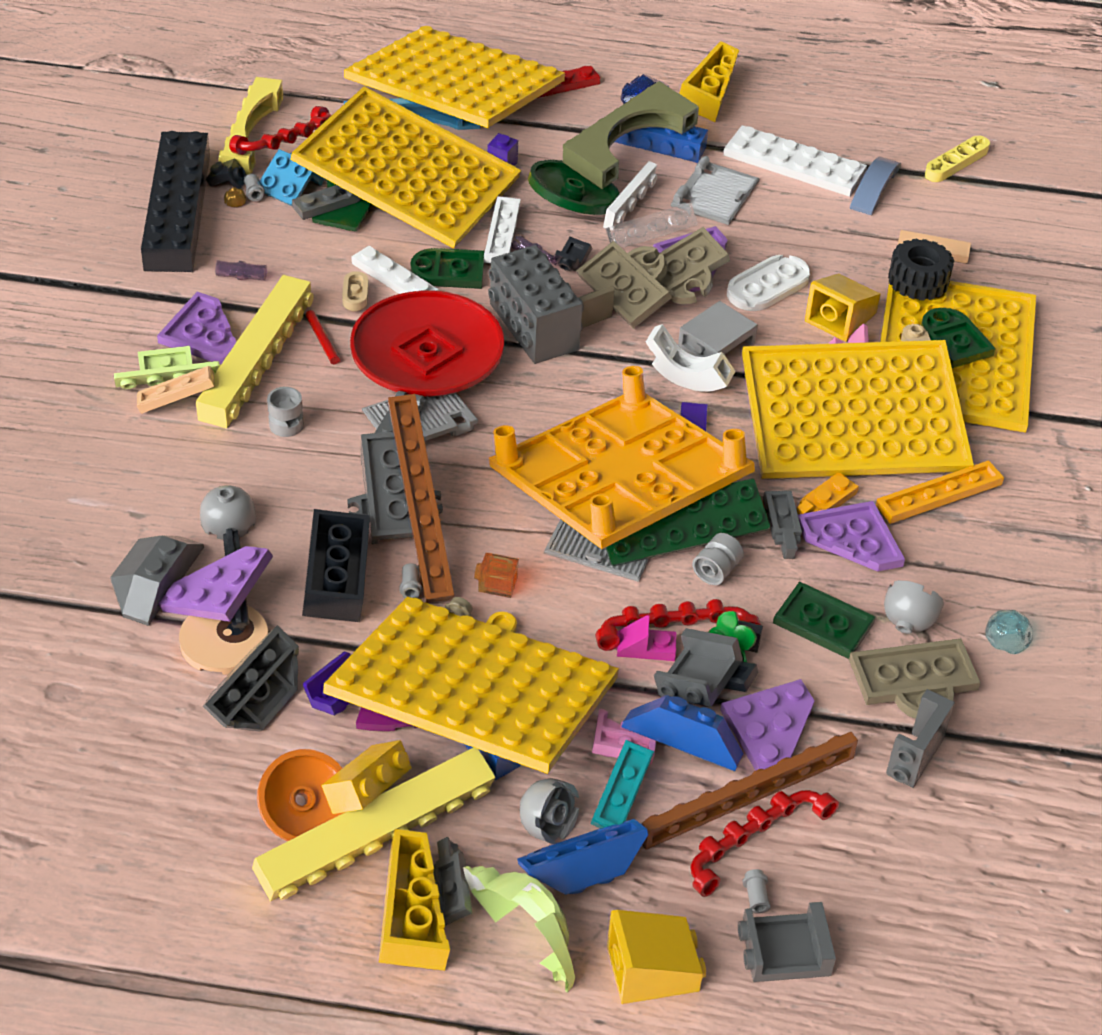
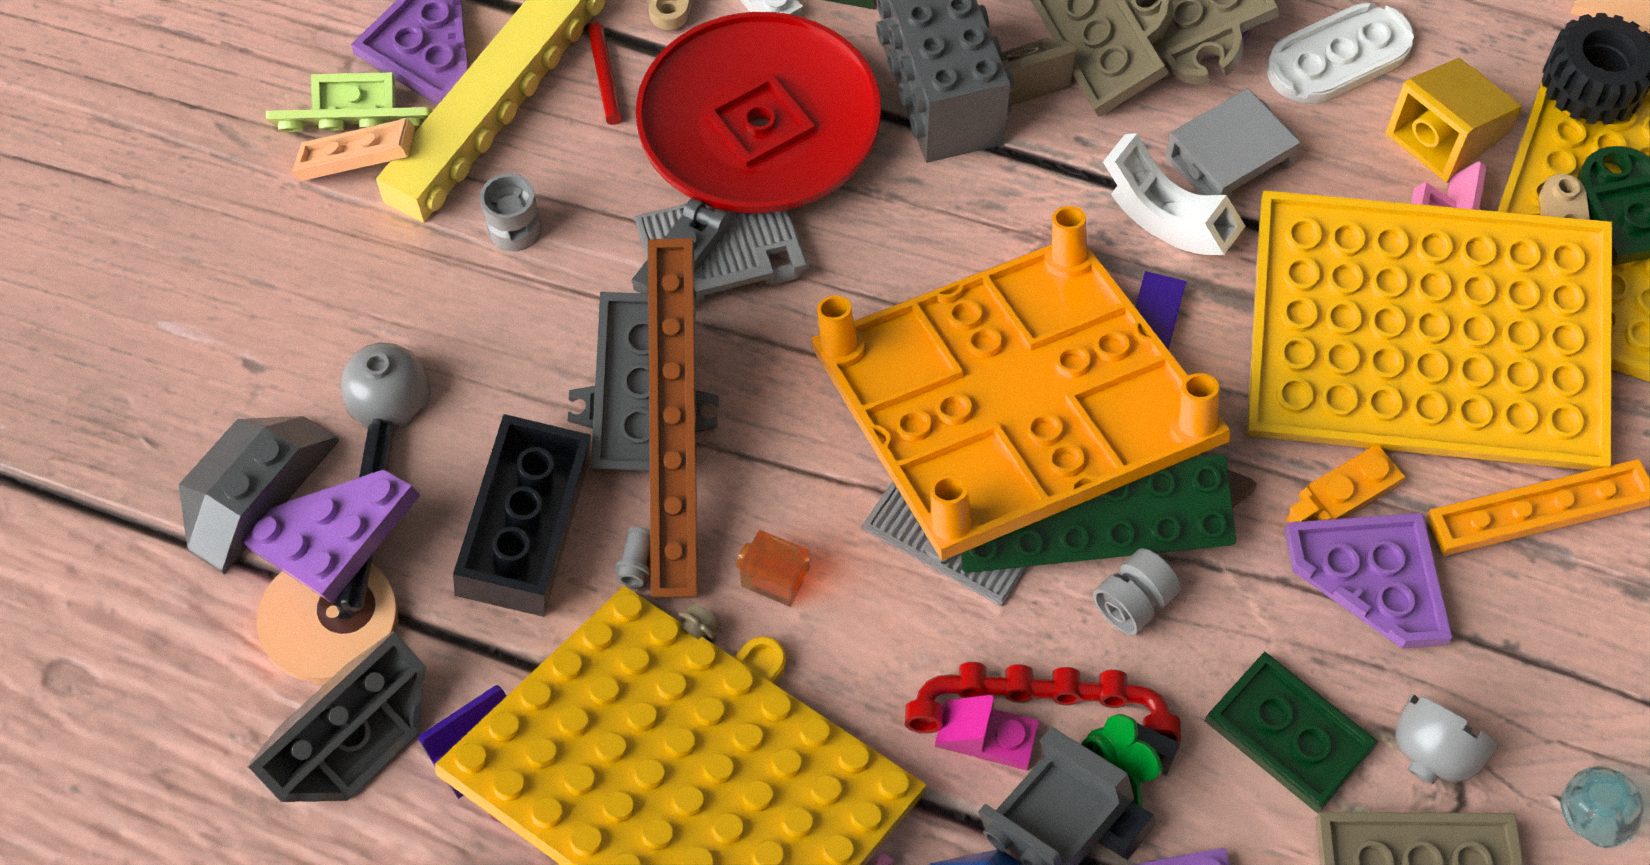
camera: 15 degrees right, 15 degrees up
(783, 521) = (1262, 530): dark grey hinge -> none

